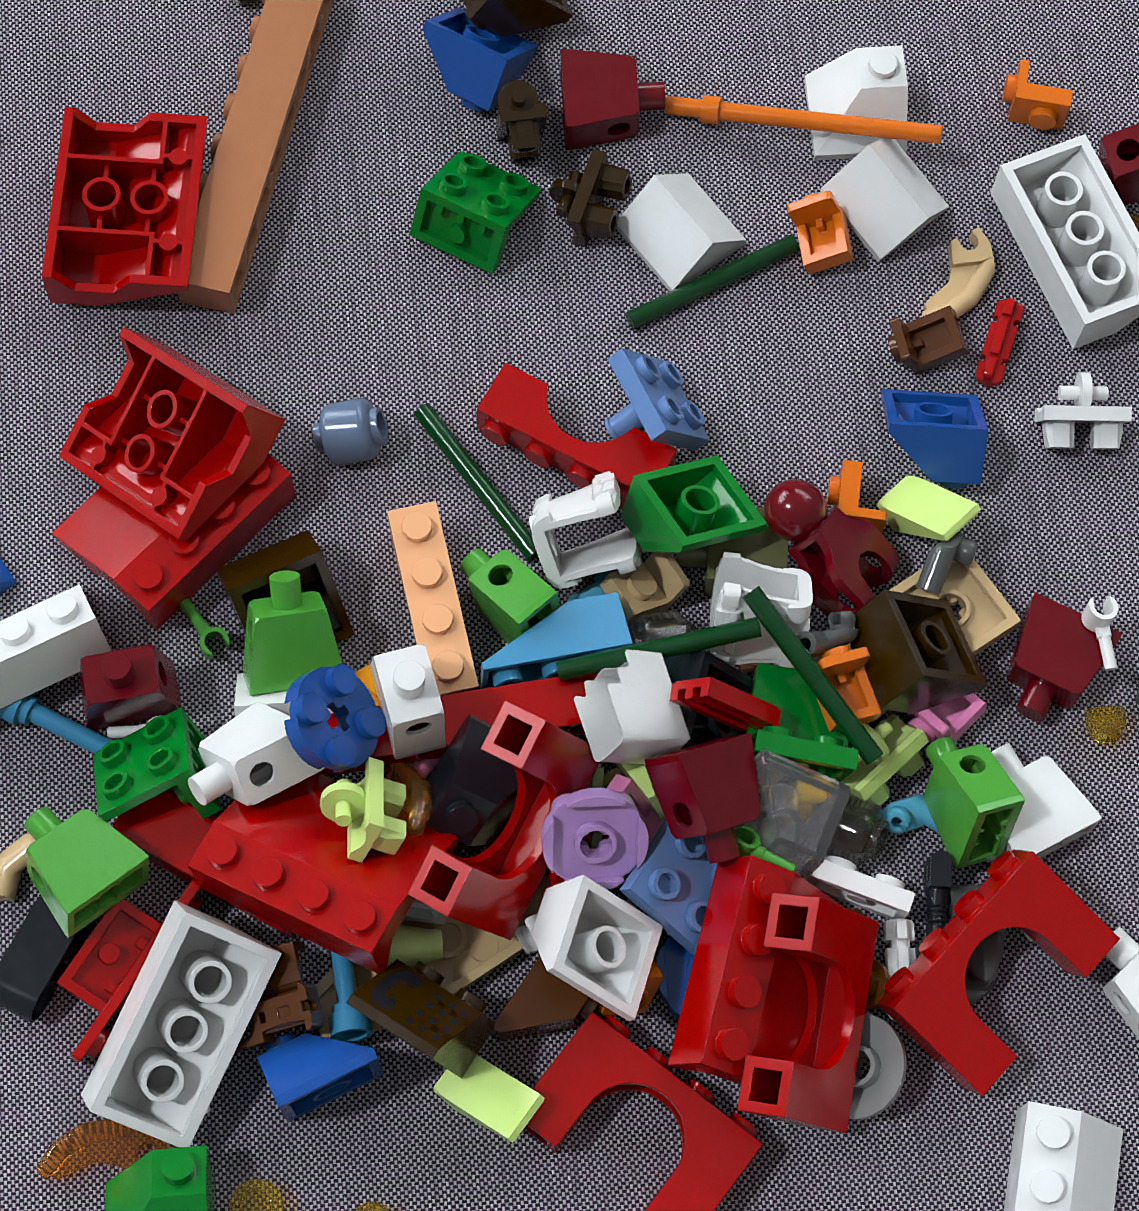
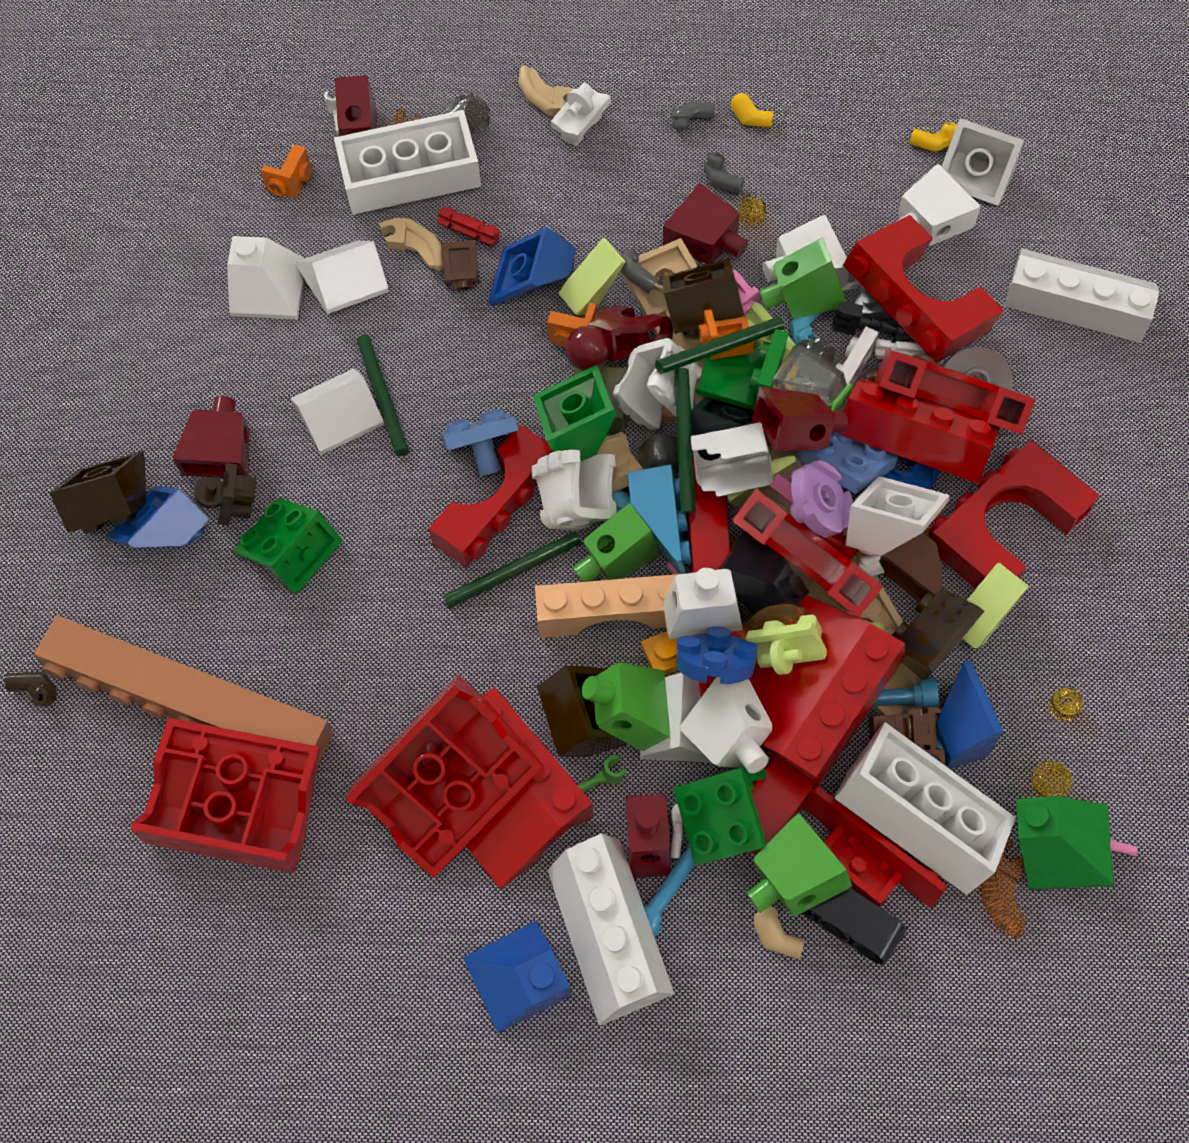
camera: 75 degrees left, 5 degrees down
(350, 431) = (458, 649): sand blue head -> none
(582, 198) = (288, 450): dark brown hips -> none
(714, 110) = (244, 371): orange bar -> none
(724, 703) = (734, 401): red tile -> none
(821, 231) = (363, 315): orange bracket -> none
(841, 633) = (685, 333): dark grey arm -> none
(1101, 626) = (689, 190): white hand -> none
(1104, 421) = (531, 182): white hips -> none

